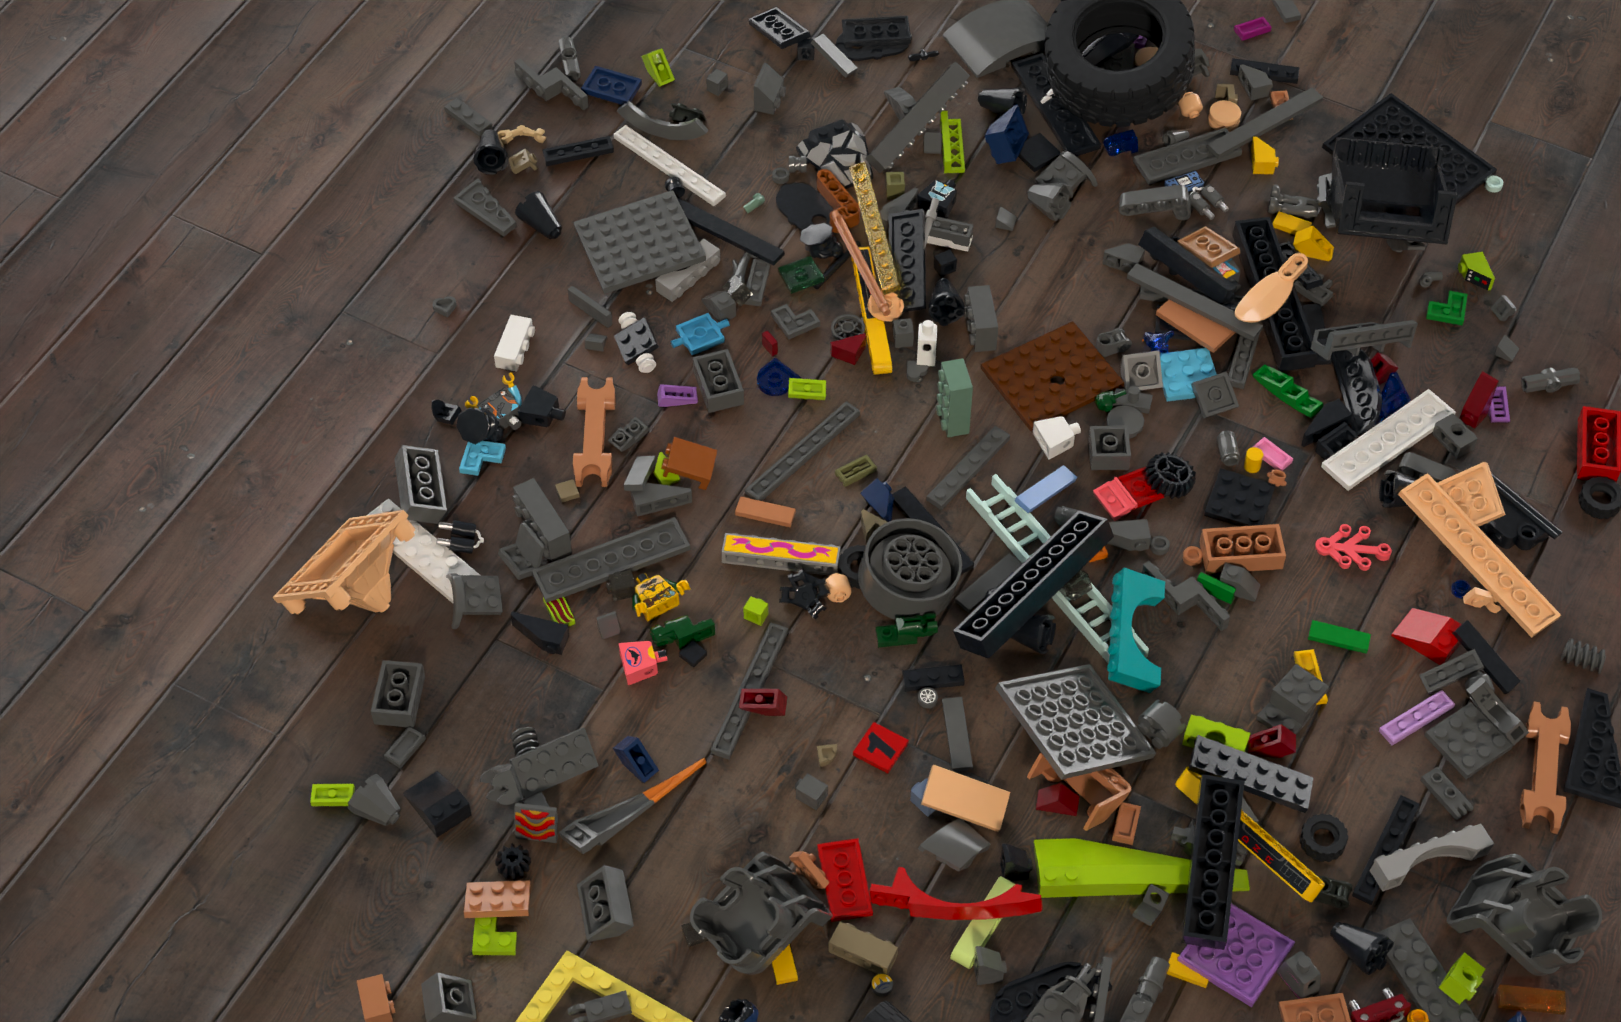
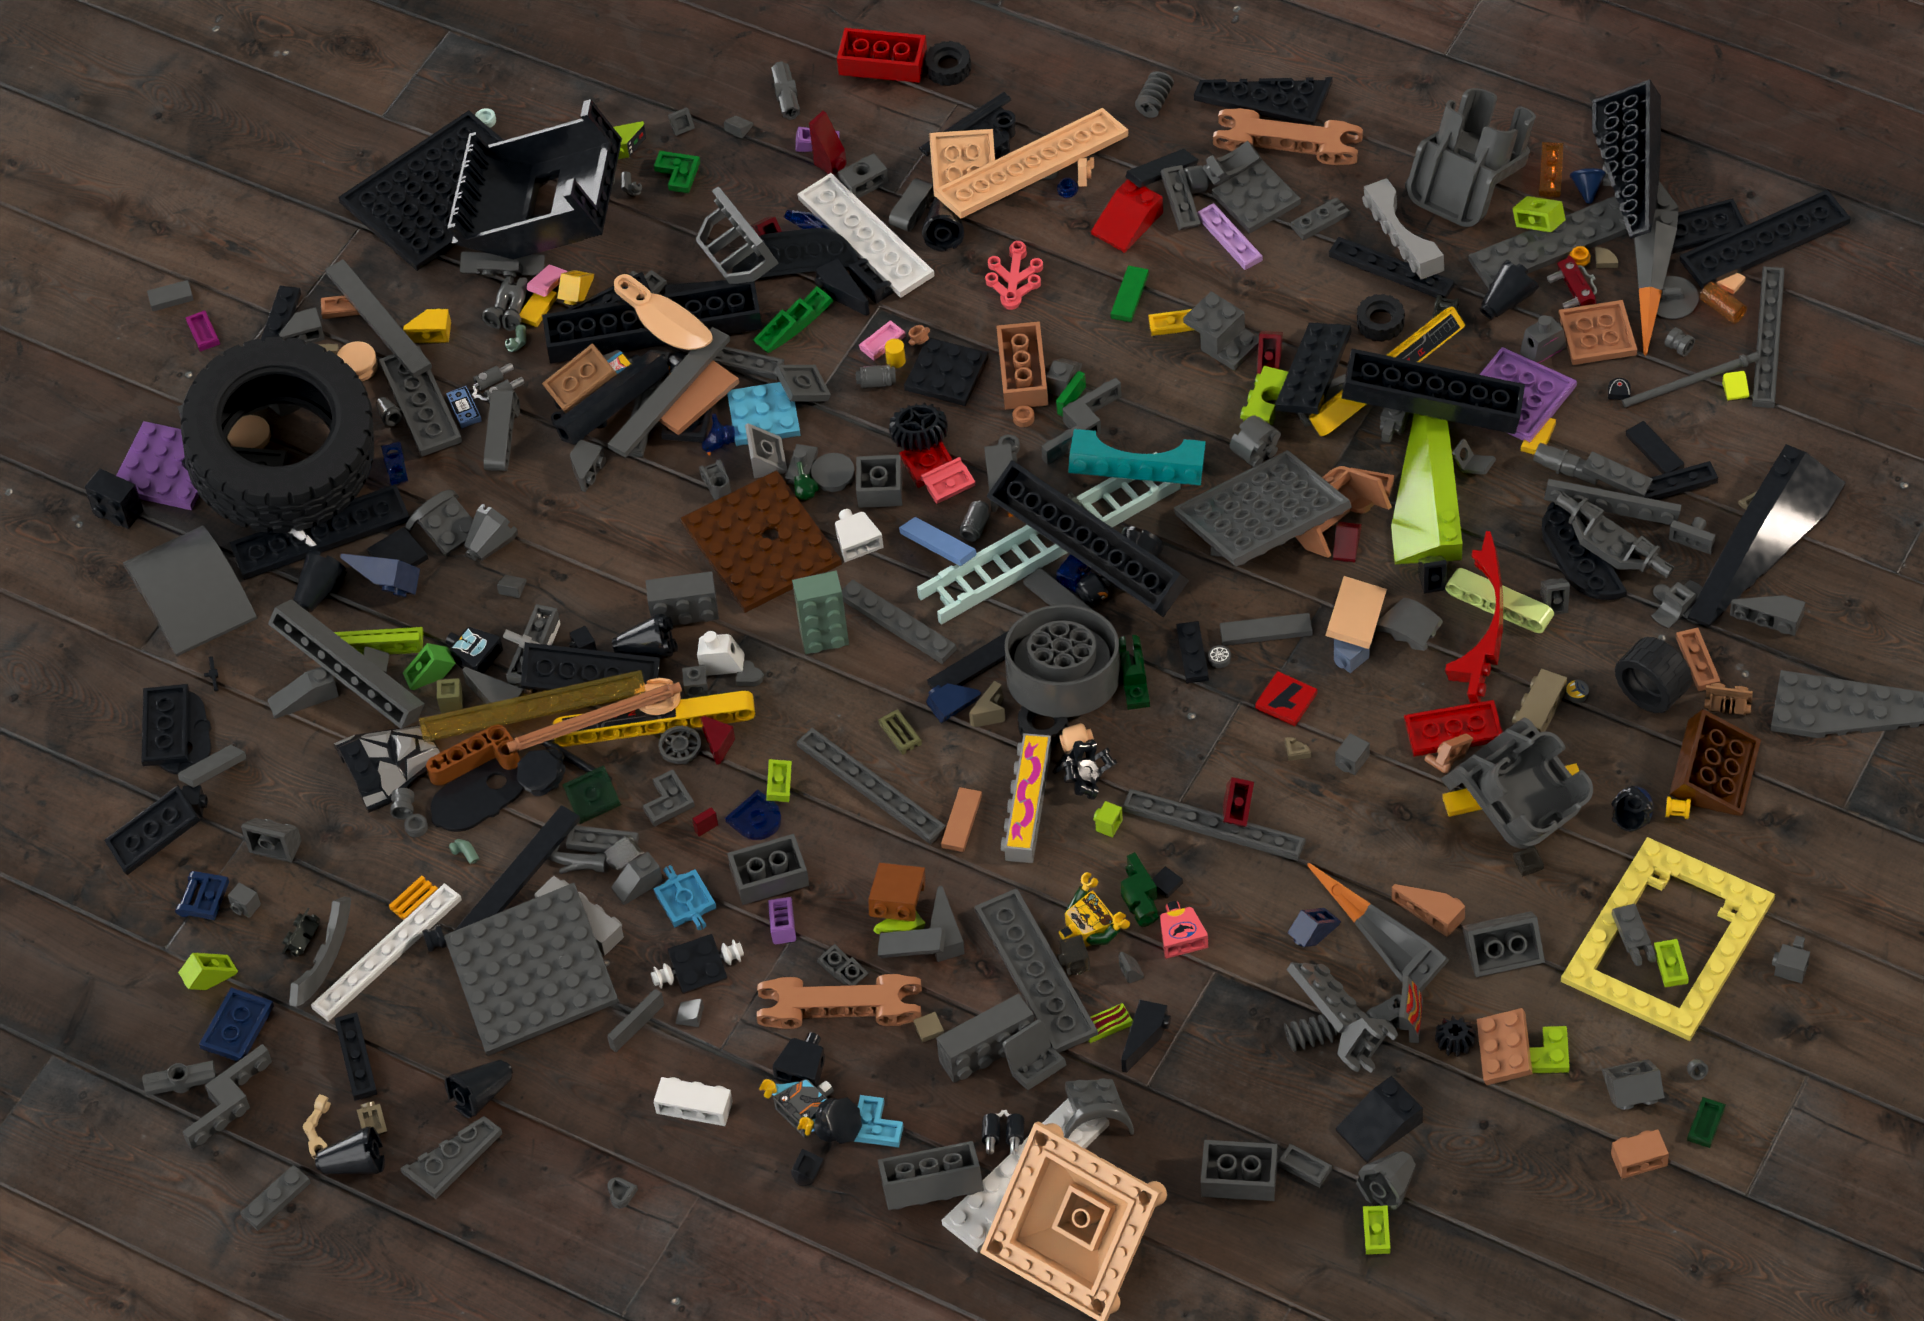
camera: 85 degrees left, 0 degrees up
(643, 854) = (1432, 907): none -> nougat slope
(717, 176) = (410, 896): none -> light orange tile
(724, 61) = (208, 897): none -> dark blue plate
(924, 172) = (429, 666): none -> bright green slope
(1251, 213) = (519, 341): none -> sand green arm
(1309, 219) = (545, 281): none -> bright pink tile

